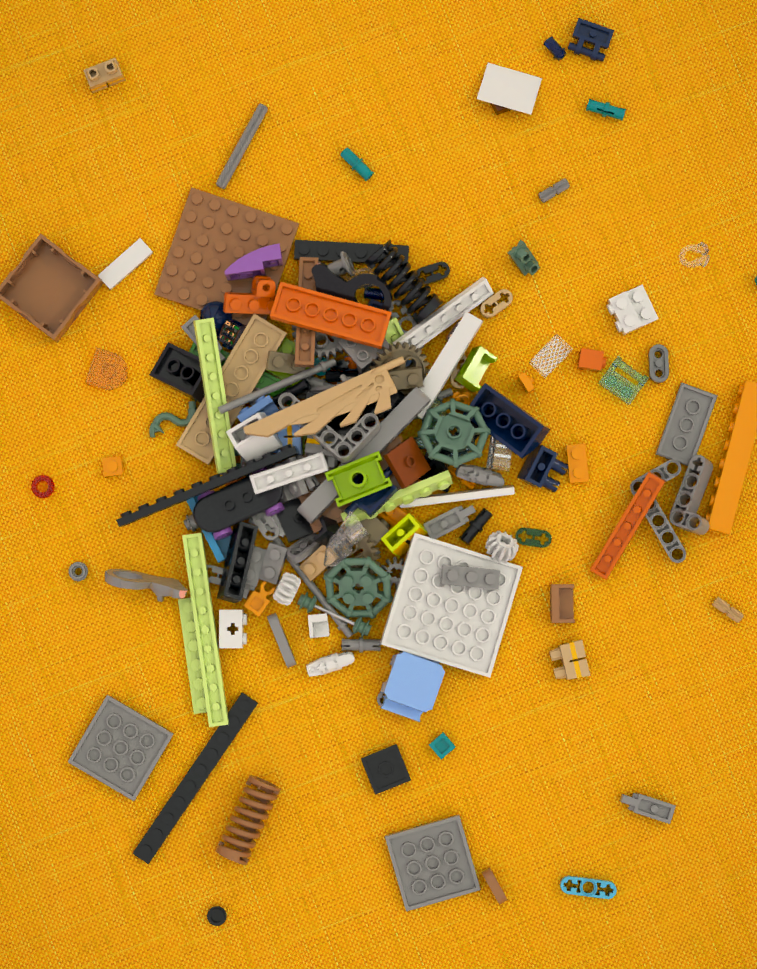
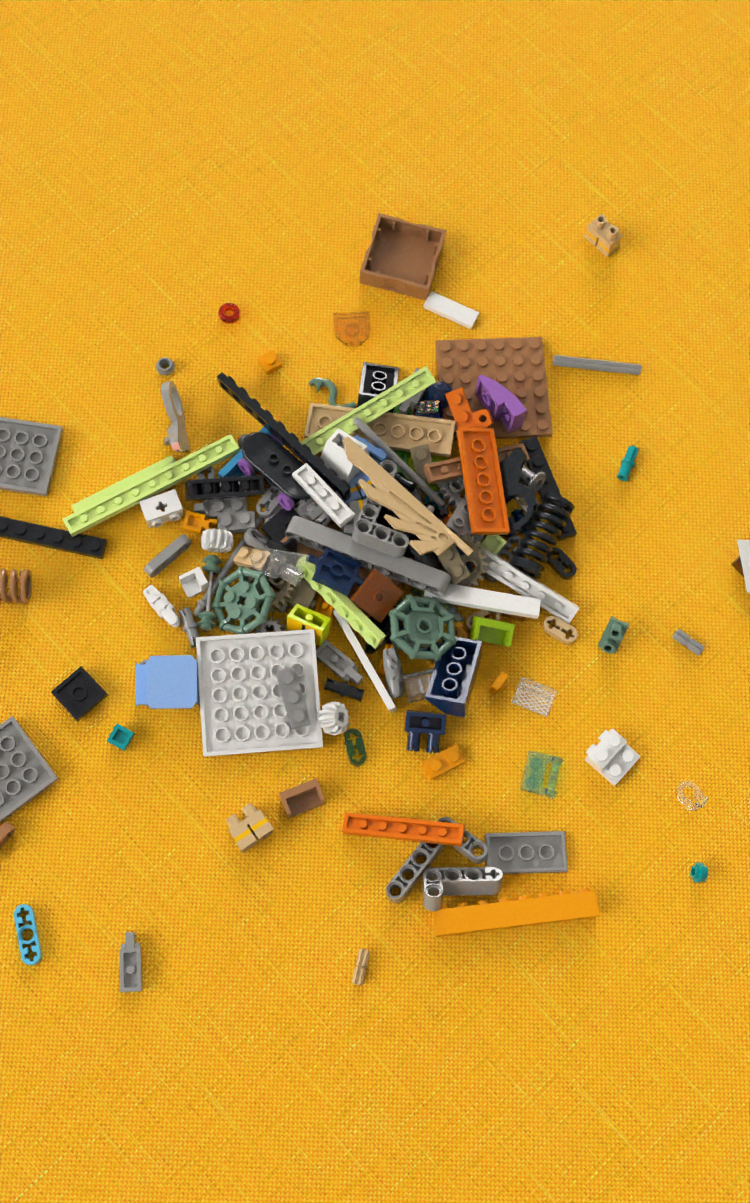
camera: 60 degrees right, 15 degrees down
(373, 480) = (346, 565): lime piece -> none
(591, 360) = (547, 735): orange brick -> none
(660, 364) = (572, 802): flat silver plate -> none

